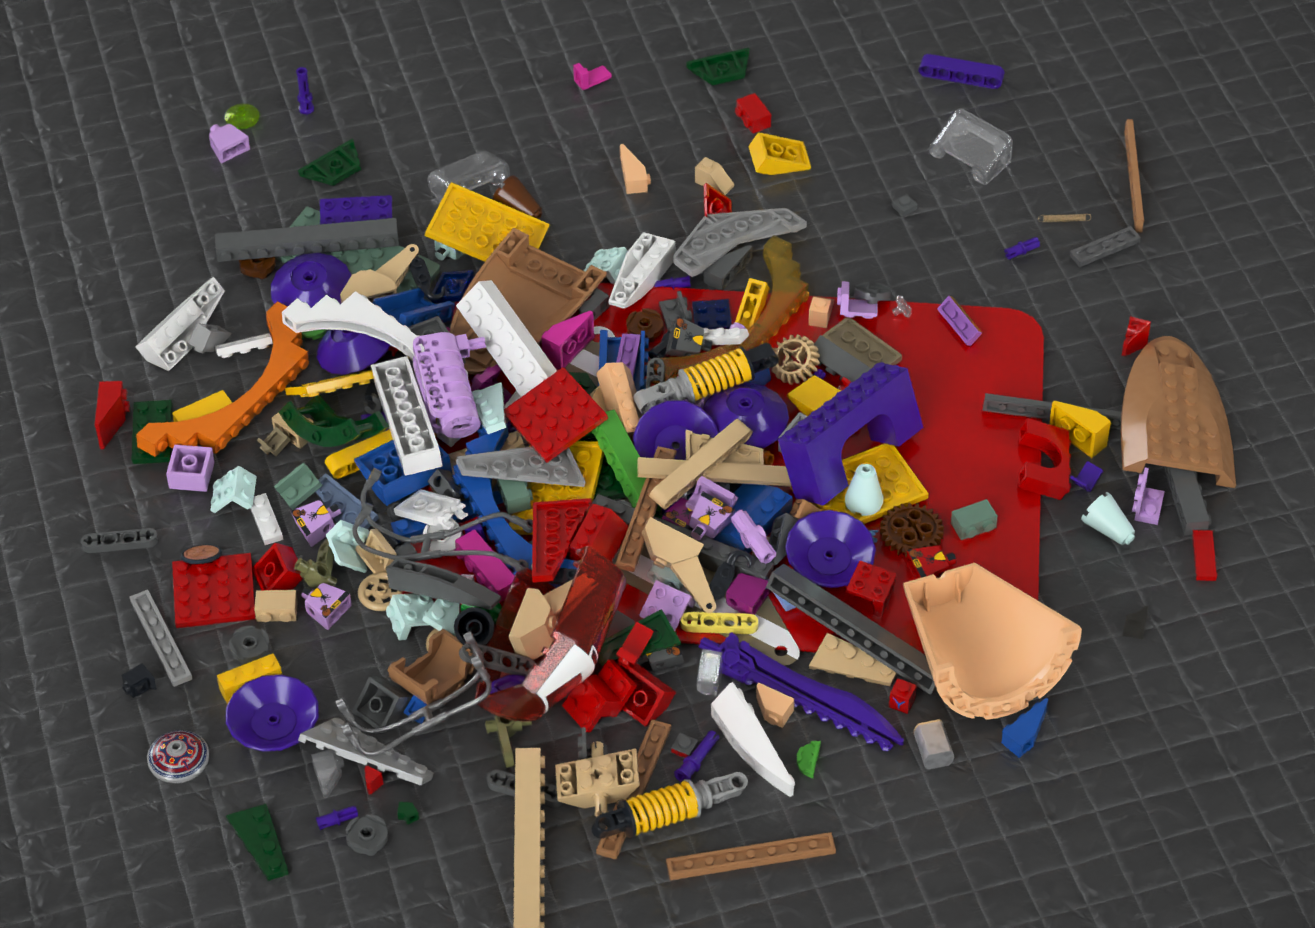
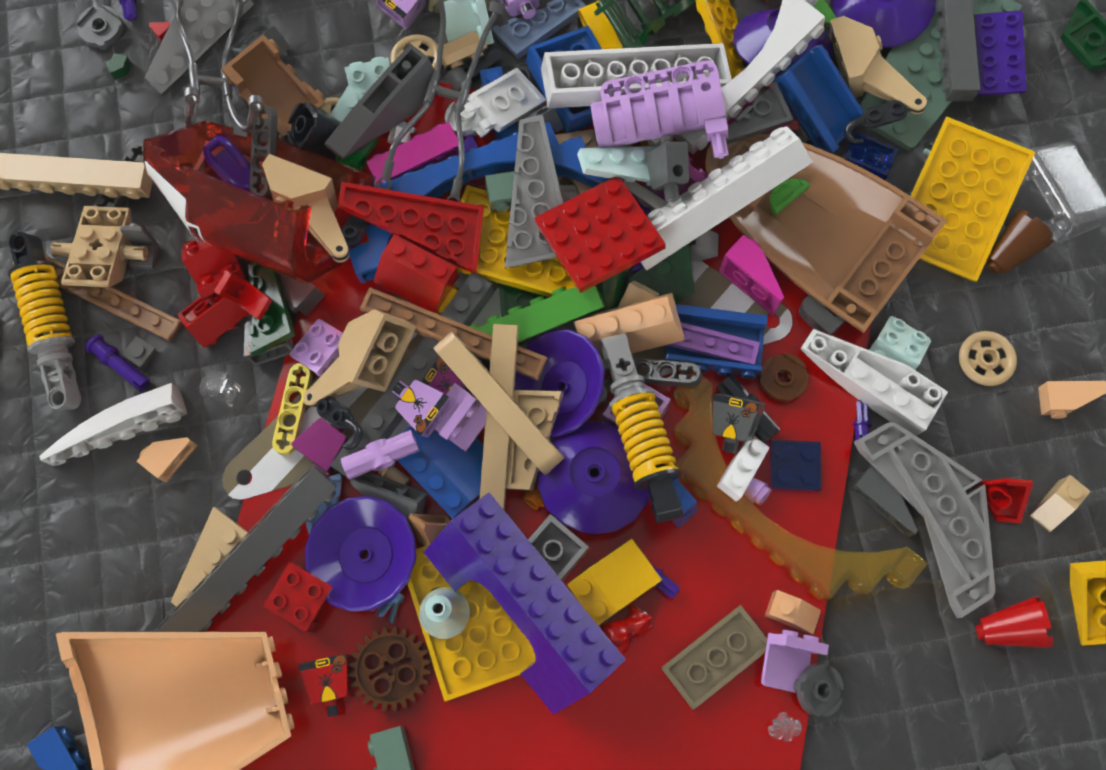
camera: 100 degrees right, 25 degrees up
(496, 376) = (668, 168): none -> dark grey torso
(609, 218) = (997, 341): none -> tan plate
(675, 307) = (801, 418): dark grey bracket -> none
(739, 665) = (142, 540): dark purple piece -> none
(752, 302) = (803, 517): yellow slope -> none
(804, 347) = (681, 569): tan gear -> none
(805, 192) = (1017, 625): none -> red cone
(807, 758) = (92, 487): bright green tile -> none
(839, 361) = (679, 626): dark grey brick -> none
(902, 696) = (143, 612): red brick -> none
(933, 744) = (45, 633): flat silver piece -> none

